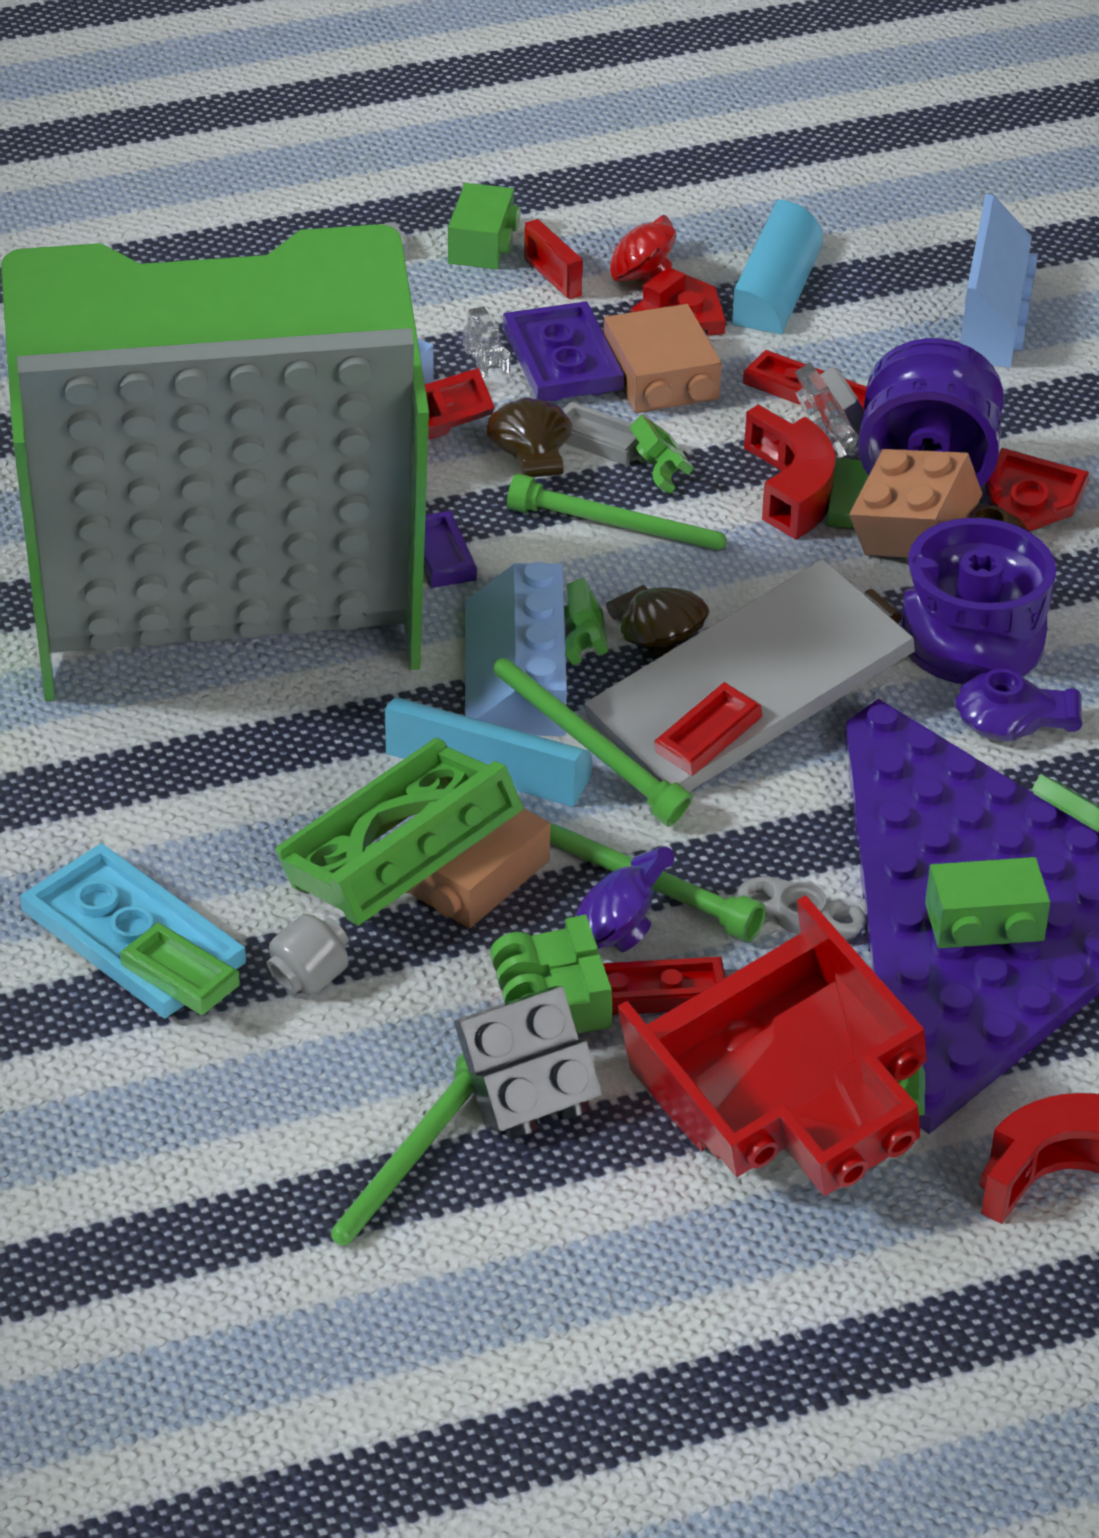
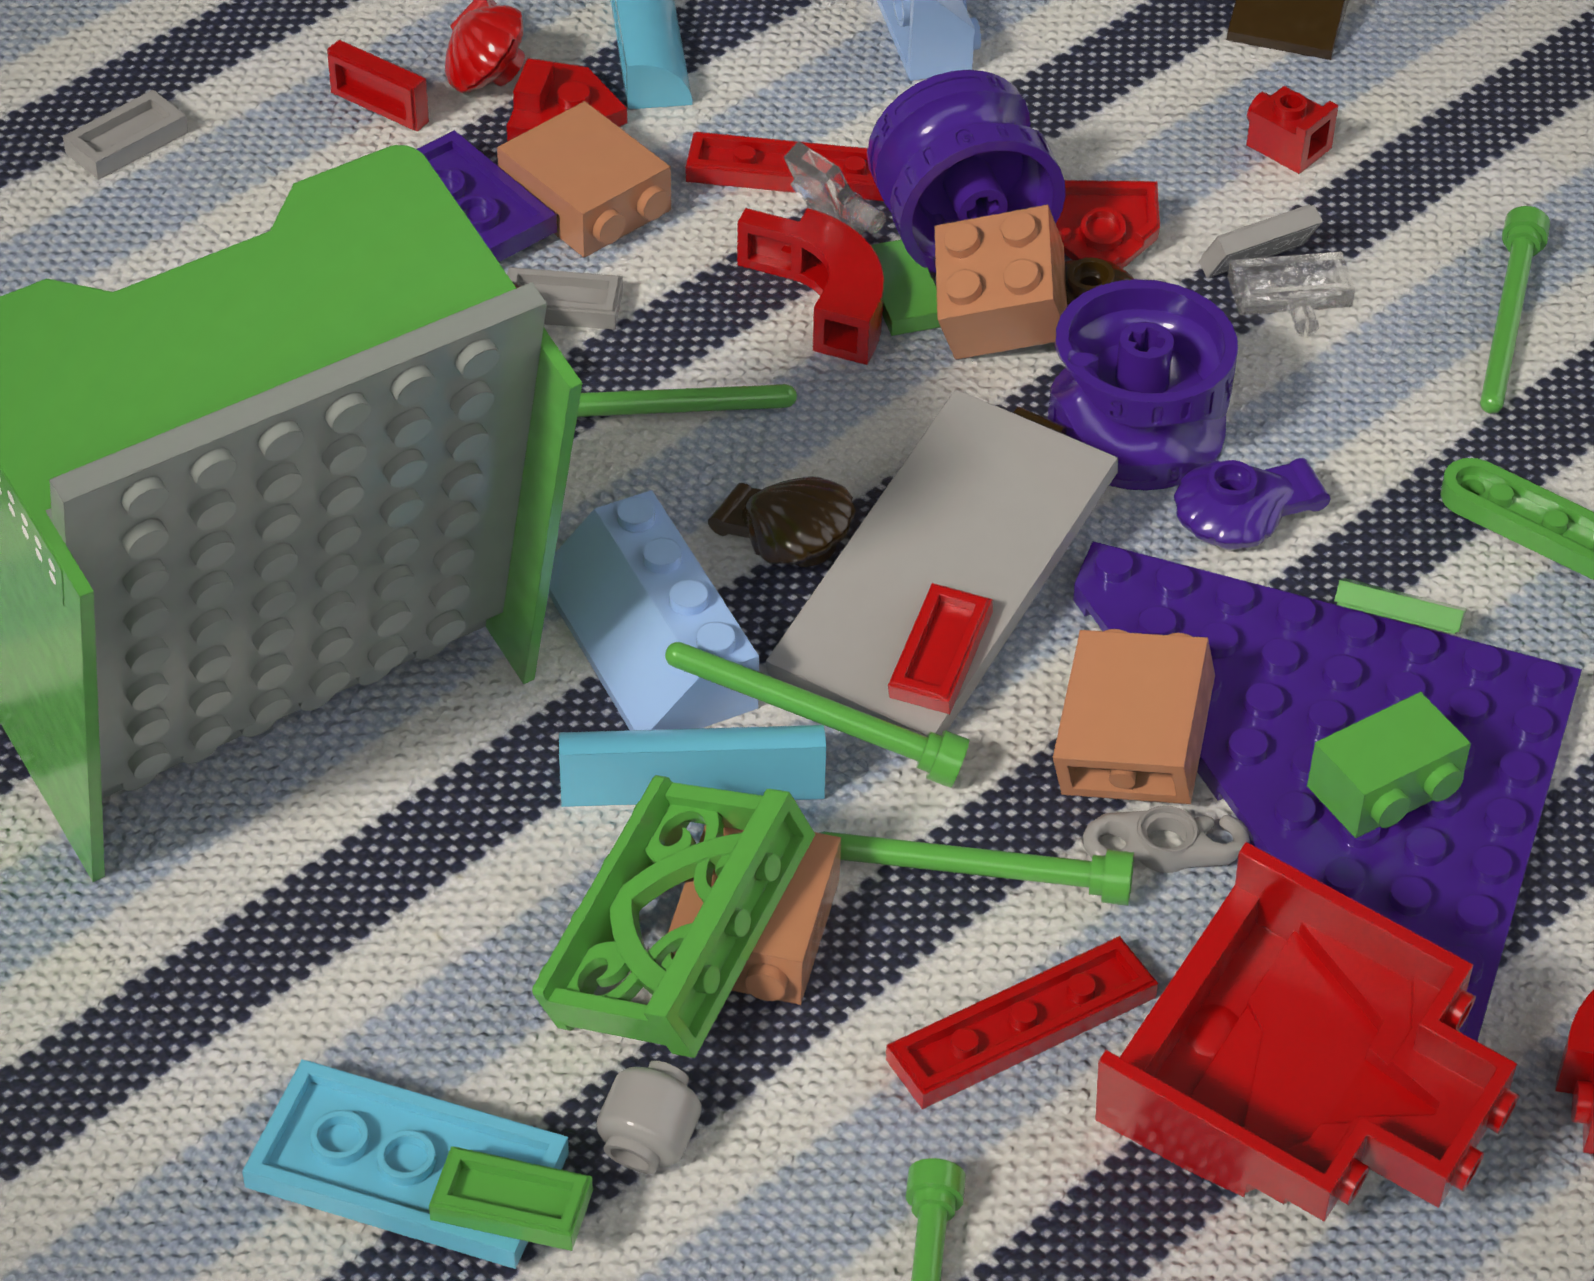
camera: 25 degrees left, 5 degrees up
(482, 226) = (267, 66): bright green brick -> none
(527, 1062) = (1005, 1166): plate -> none
(557, 959) = (969, 1042): bright green legs -> none
(584, 620) = (706, 549): bright green plate -> none
(622, 898) = (978, 913): dark purple animal -> none
(661, 451) = (649, 296): bright green plate -> none
(821, 815) = (1134, 716): none -> nougat brick
(844, 397) = (856, 172): light grey tile -> none

